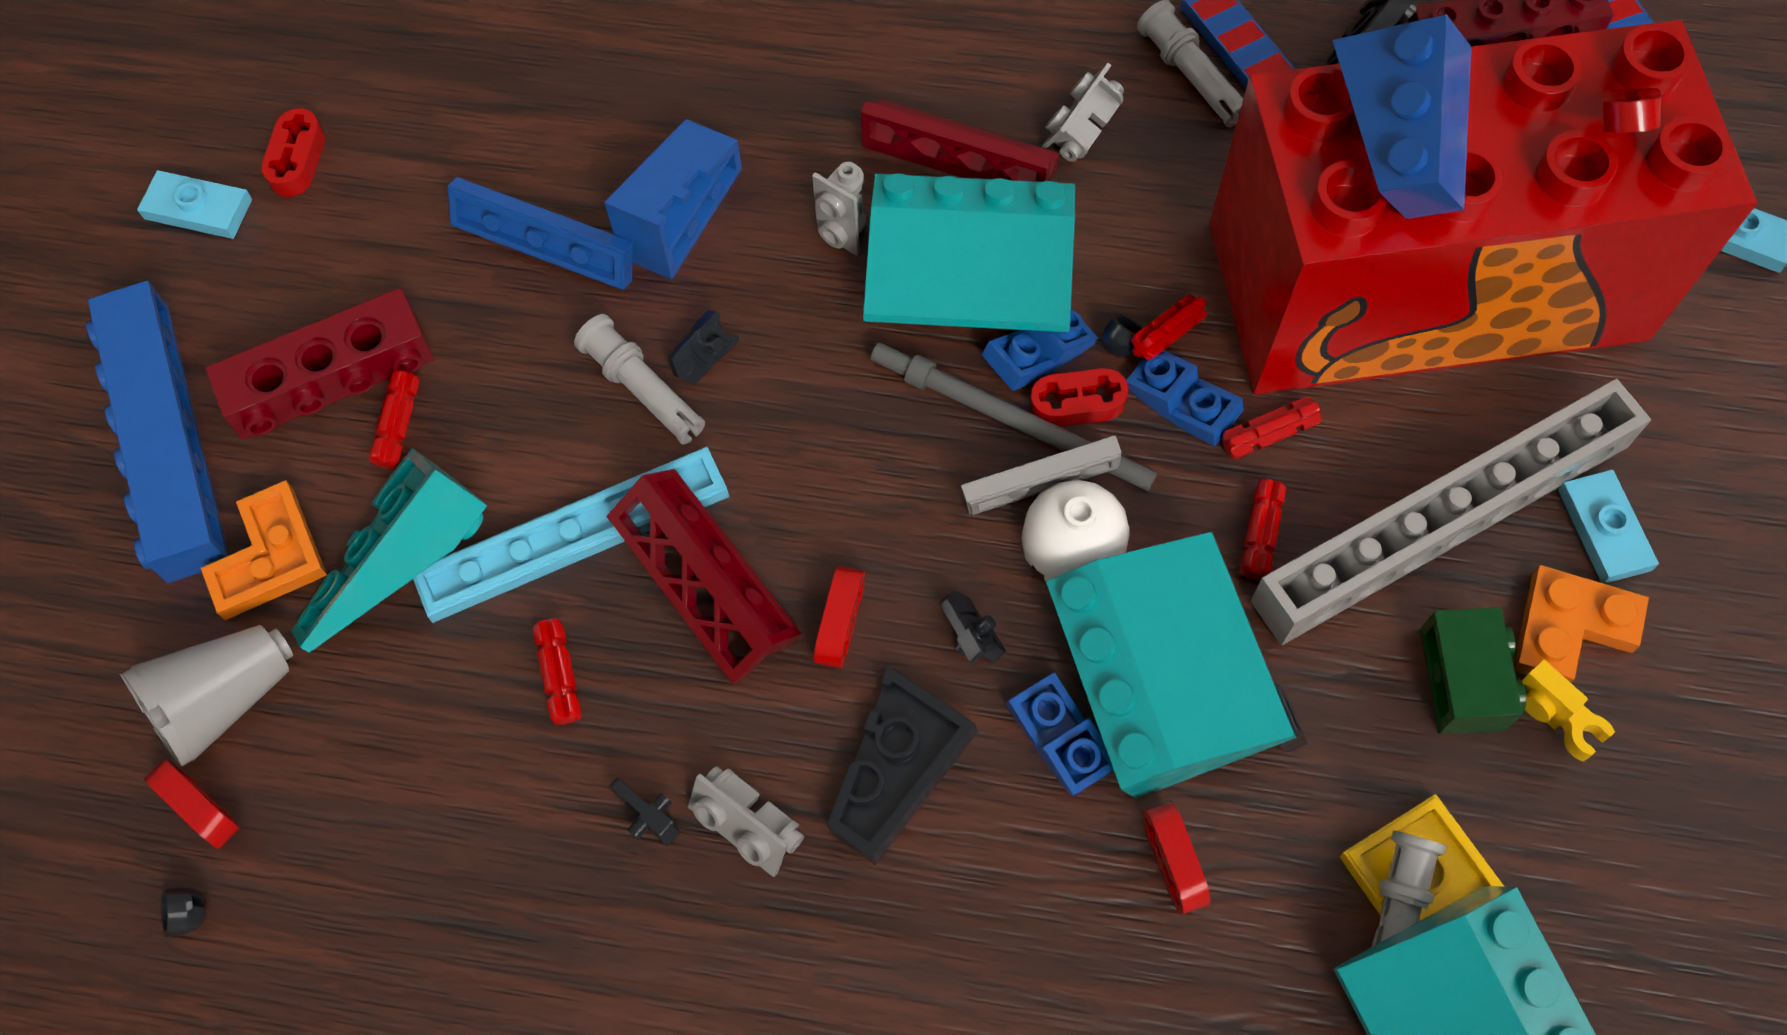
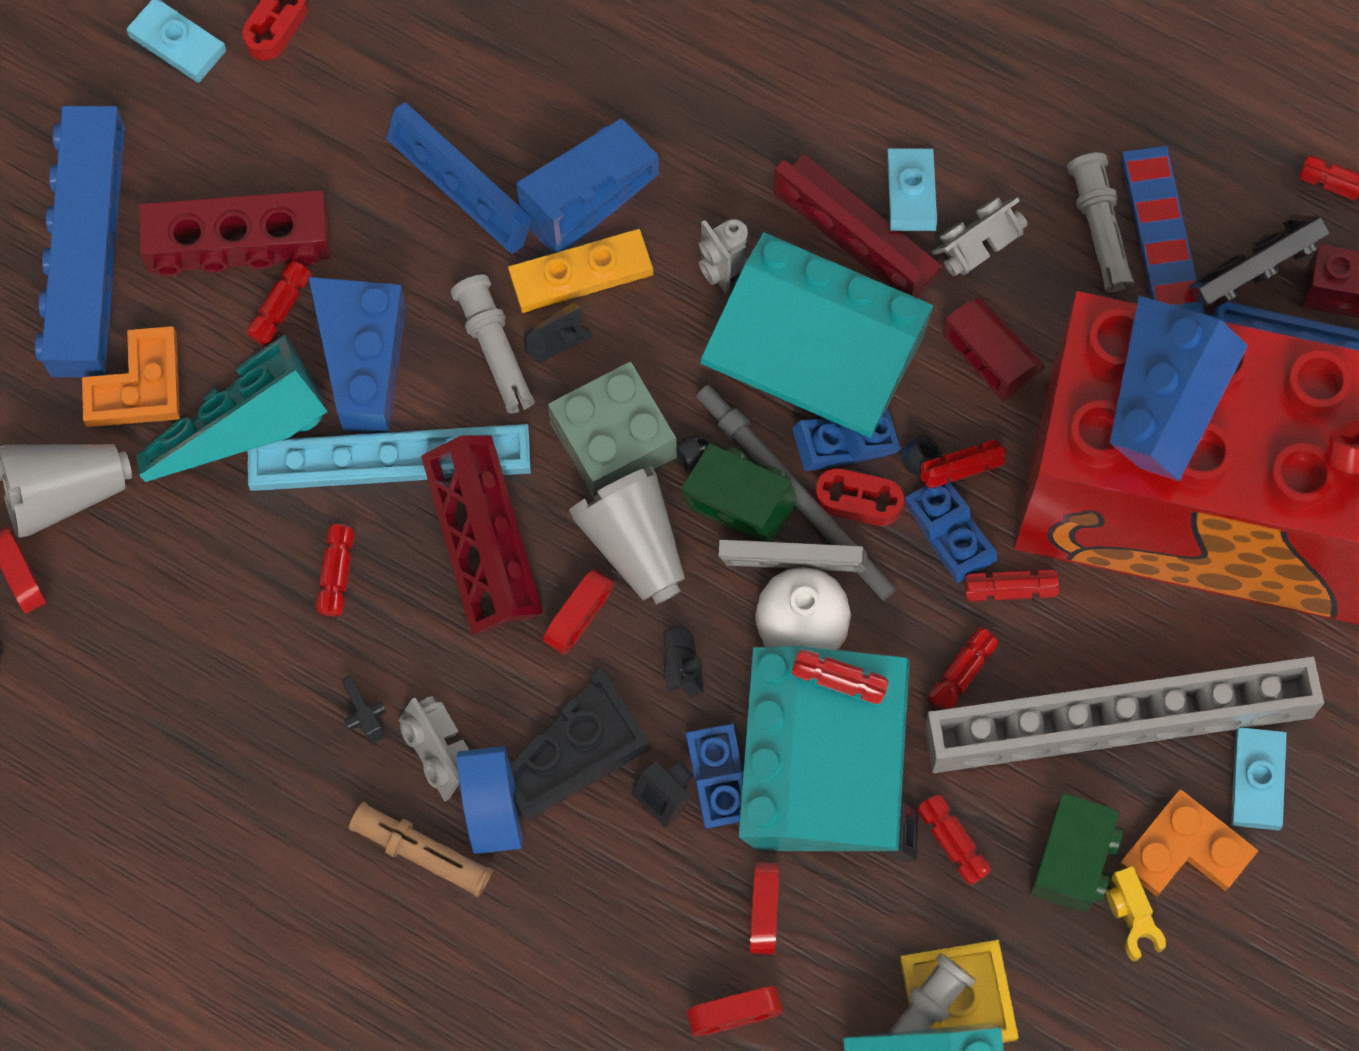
camera: 20 degrees right, 5 degrees up
(500, 429) = (362, 347): none -> blue wedge
(700, 281) = (580, 270): none -> light orange plate
(768, 941) = (404, 841): none -> medium nougat pin
(799, 419) = (612, 428): none -> sand green brick
(826, 855) = (488, 799): none -> blue slope
(867, 513) = (634, 534): none -> light grey cone
(892, 415) = (690, 451): none -> black hinge
(958, 434) = (740, 493): none -> dark green brick
(999, 95) = (911, 190): none -> medium azure plate
(1012, 773) = (663, 791): none -> black tile
(1142, 213) = (991, 348): none -> dark red brick
(1156, 573) = (840, 676): none -> red axle
(1195, 987) = (734, 1011): none -> red beam
(1338, 706) = (954, 839): none -> red axle

